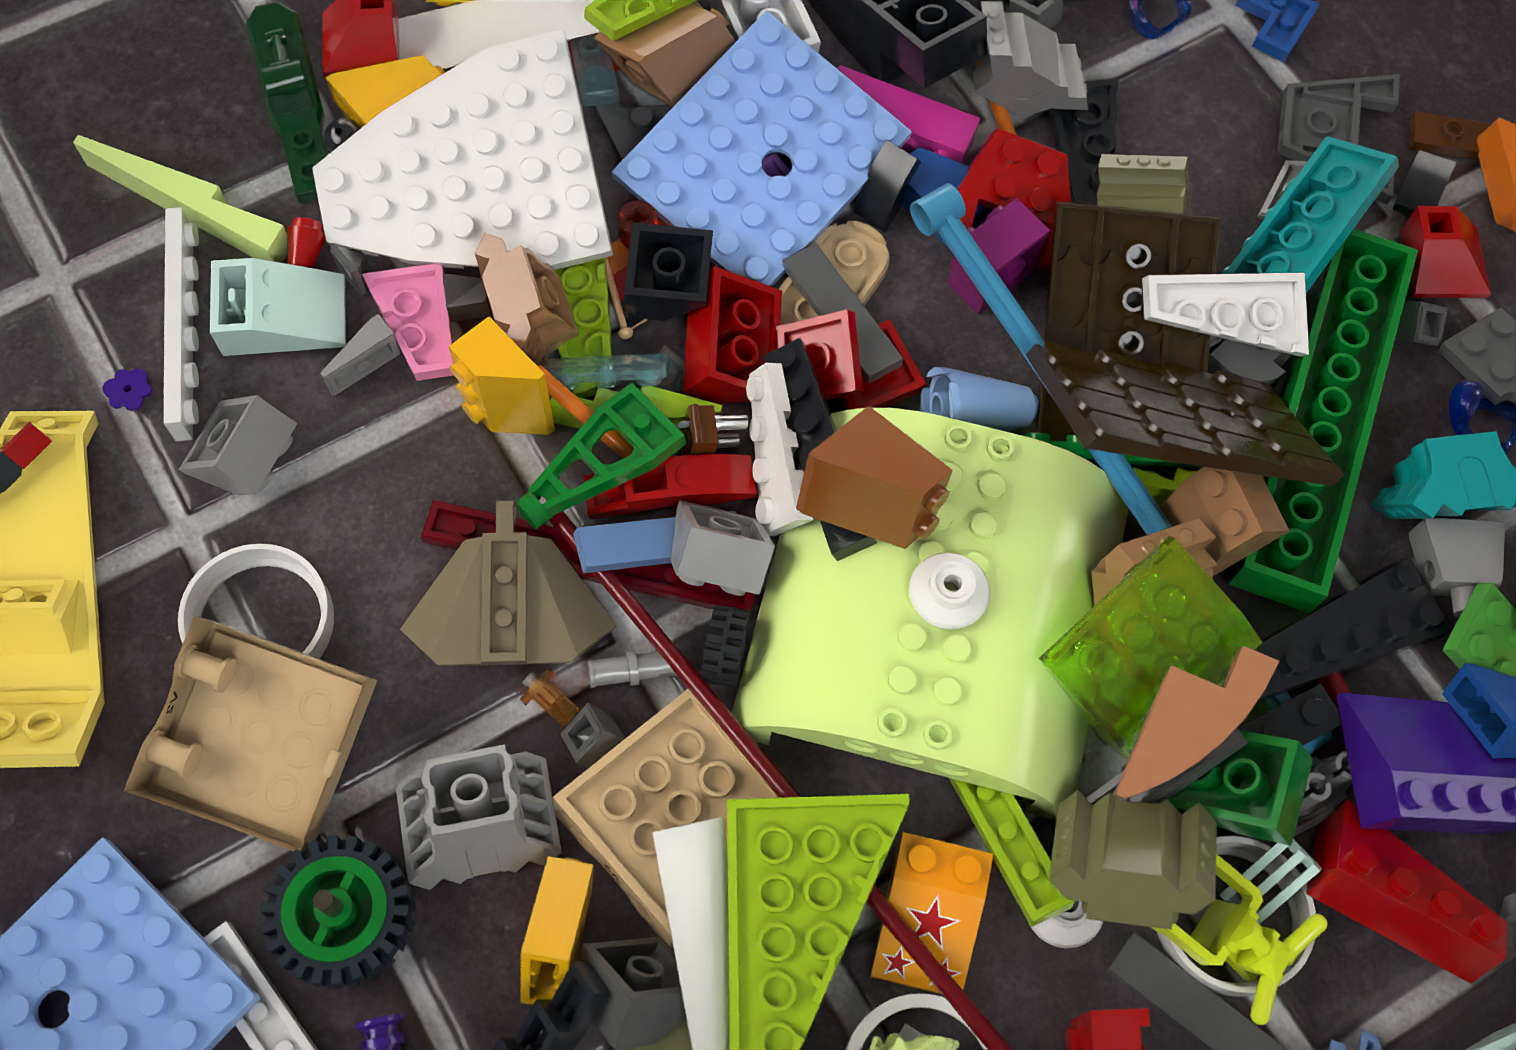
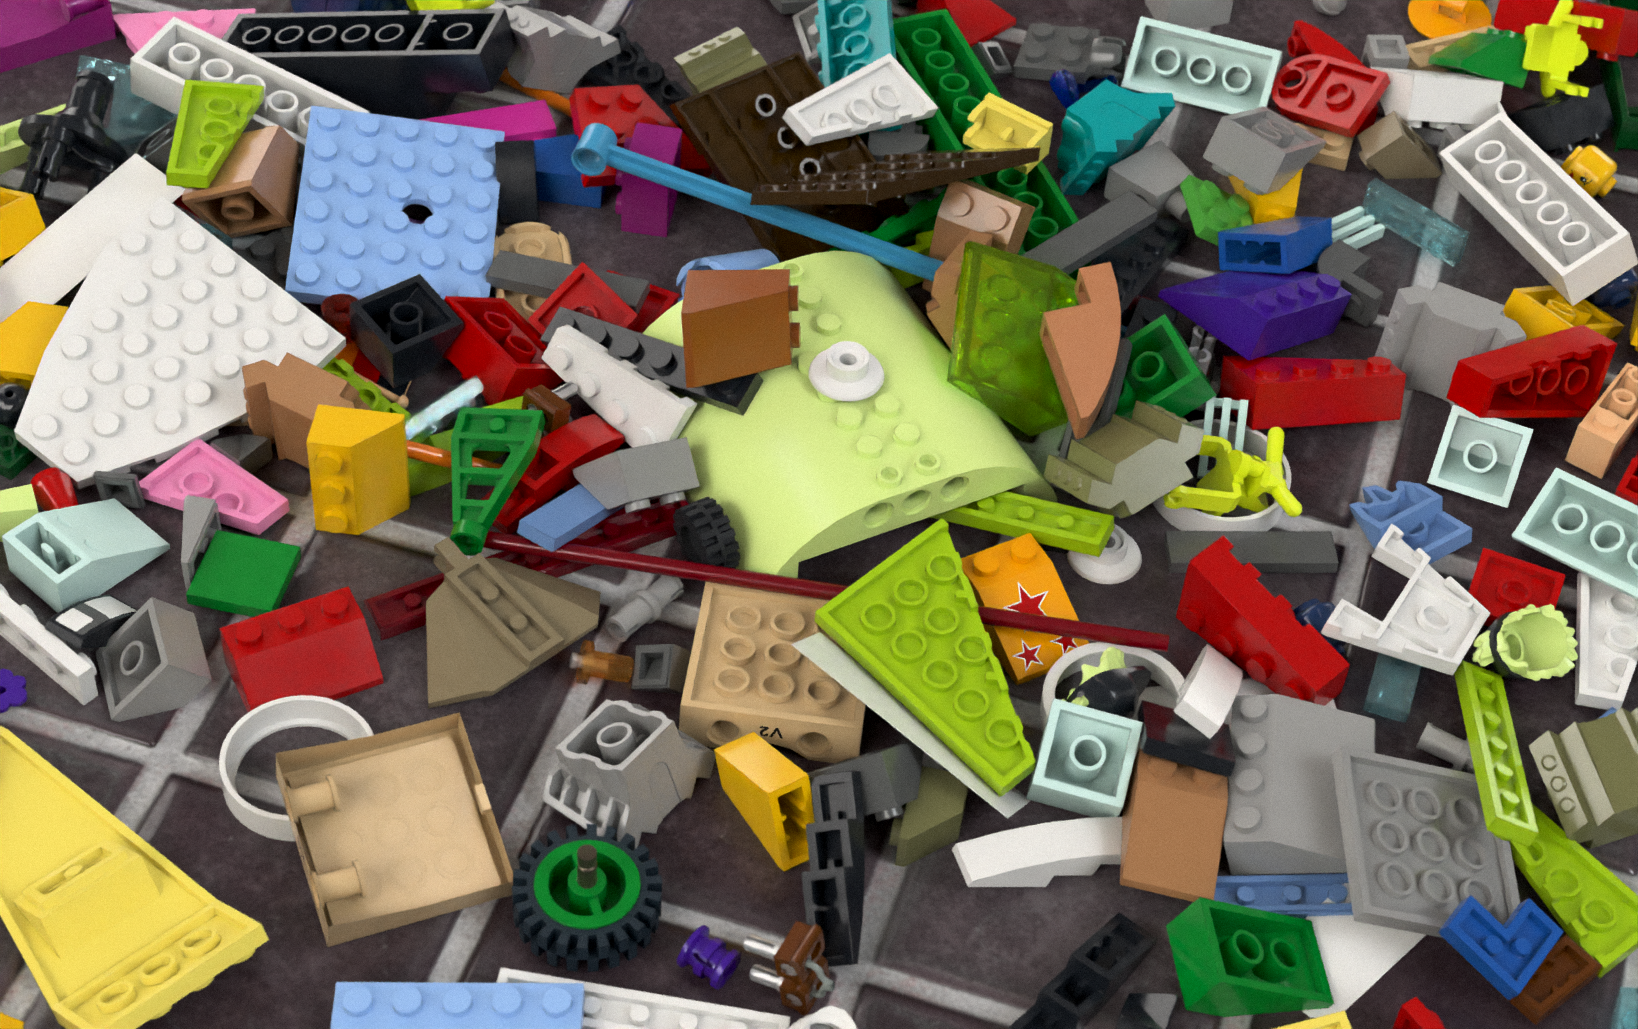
camera: 40 degrees left, 20 degrees down
(222, 376) = (90, 621): none -> slope
(341, 518) = (302, 650): none -> red slope
(369, 412) = (243, 574): none -> green tile
(1324, 589) = (1095, 233): none -> dark grey tile
(1347, 426) = (1007, 126): none -> light yellow hinge

